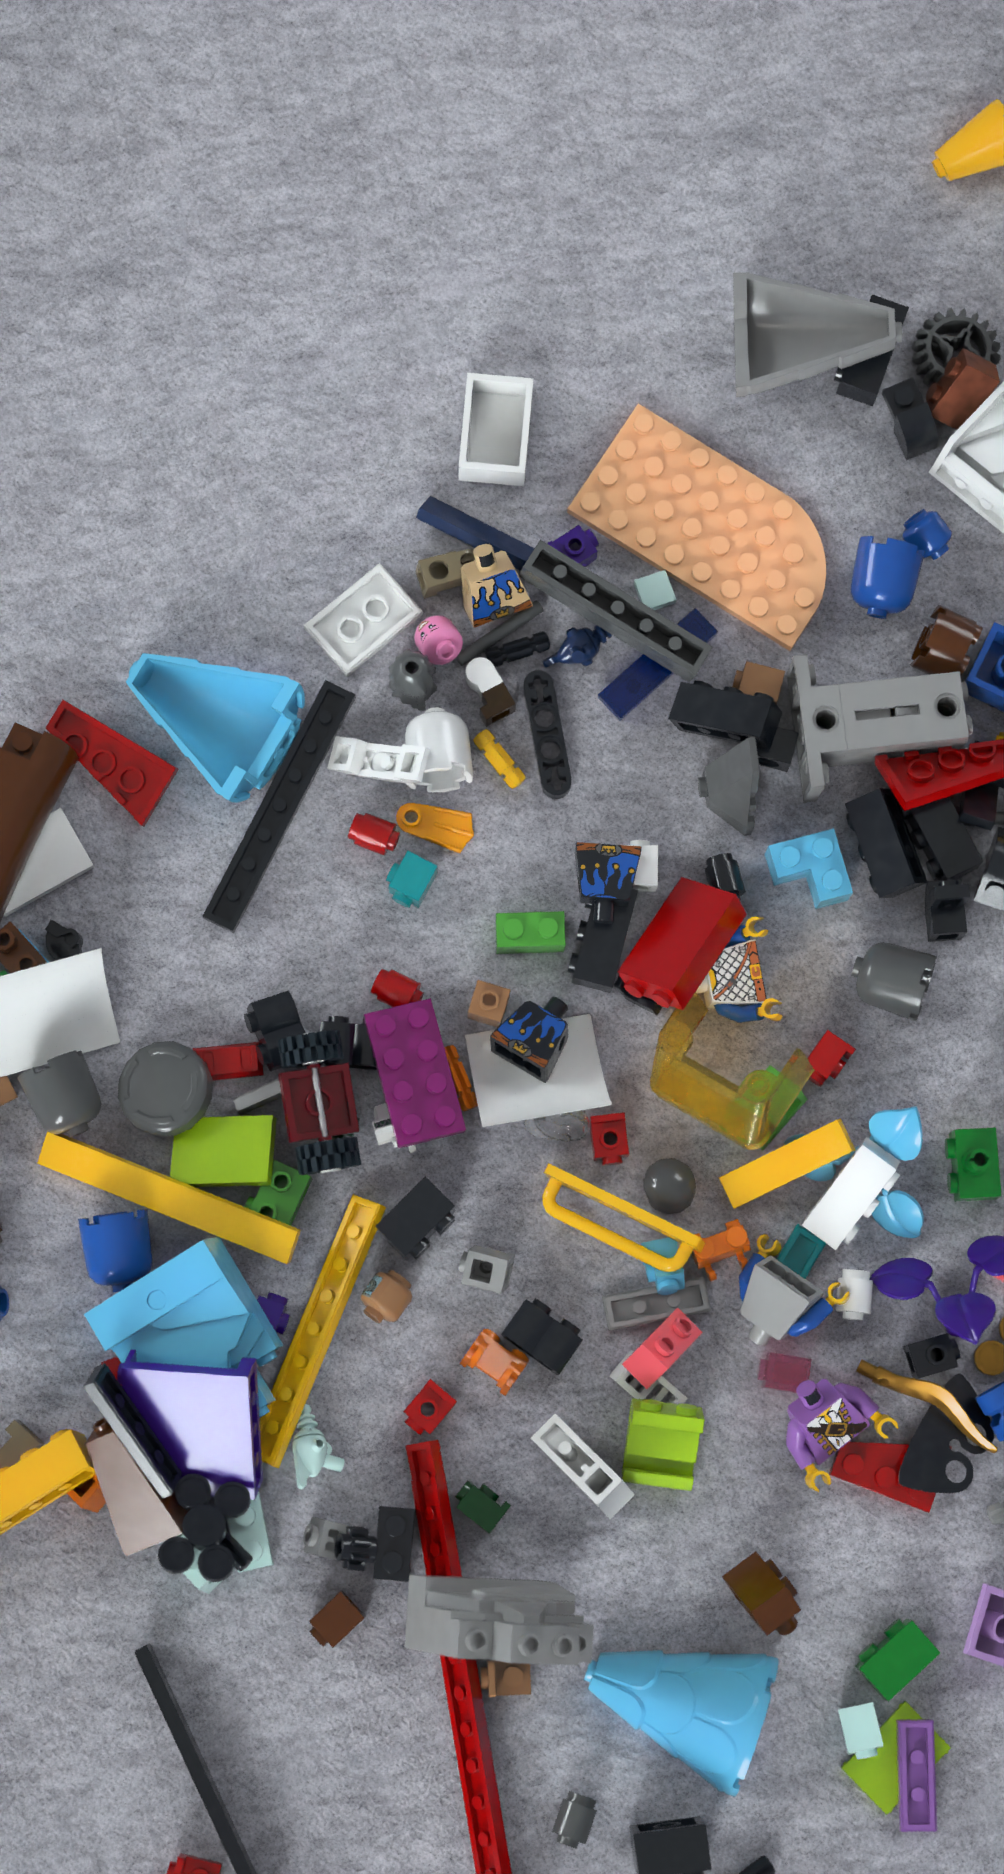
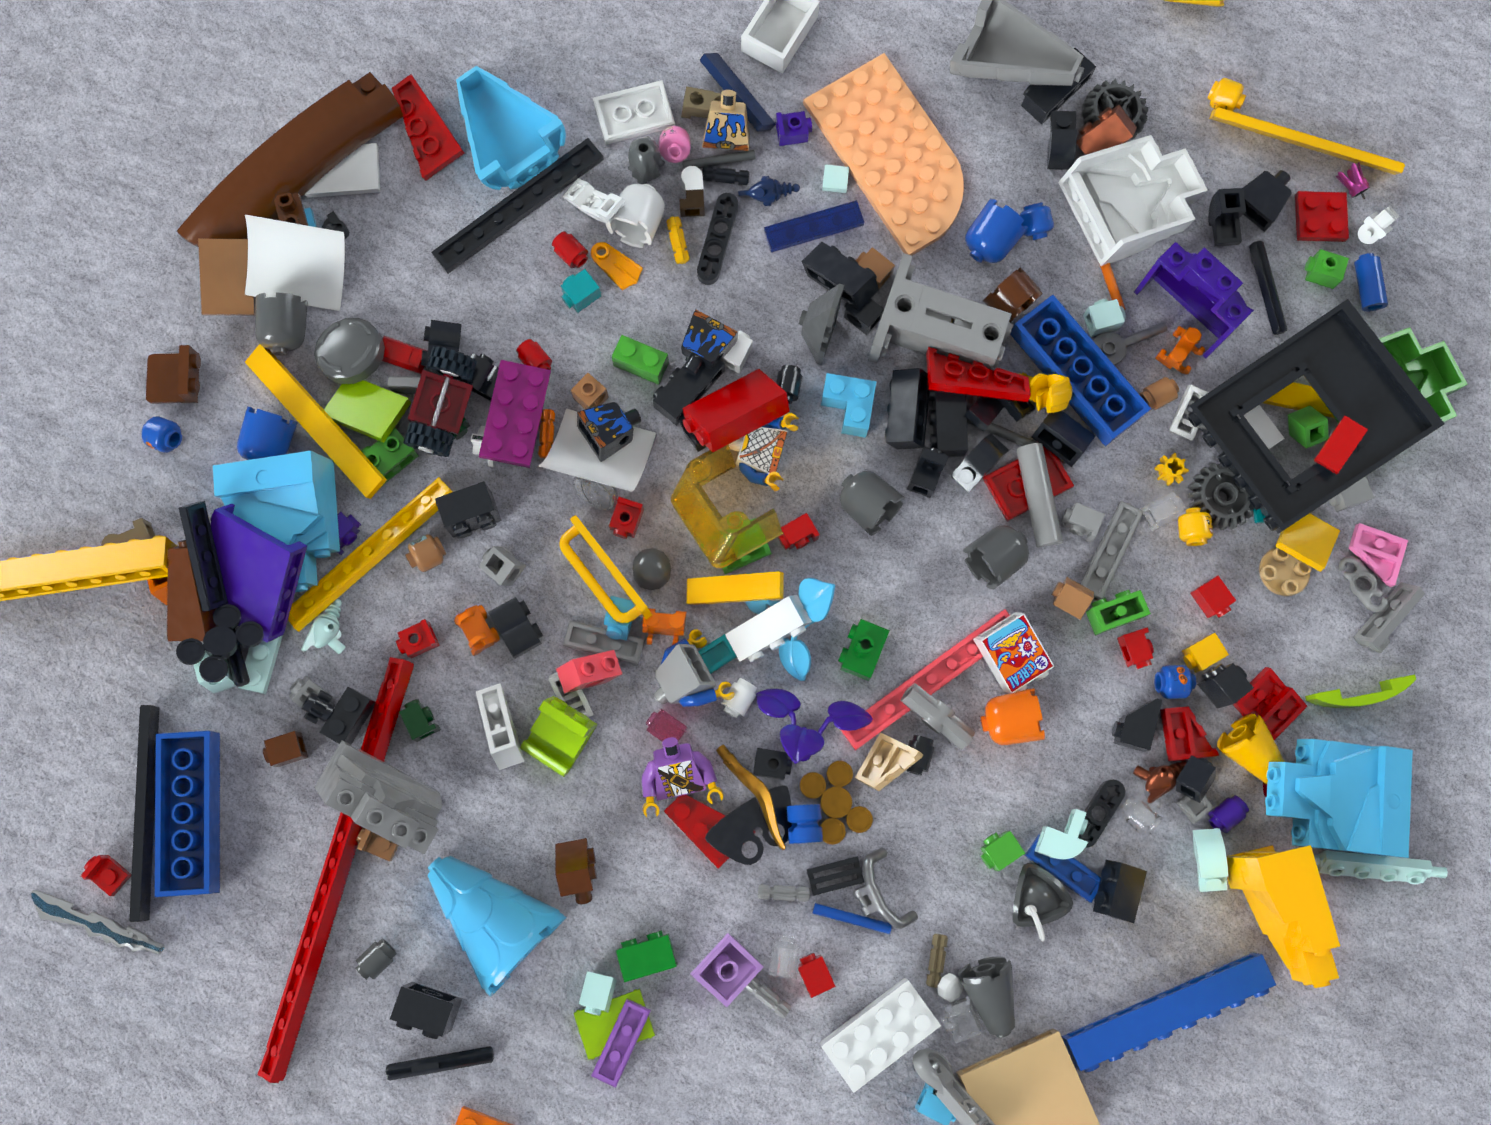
camera: 25 degrees right, 0 degrees up
(260, 1756) = (187, 813): none -> blue brick
(615, 611) = (798, 173): dark grey brick -> none

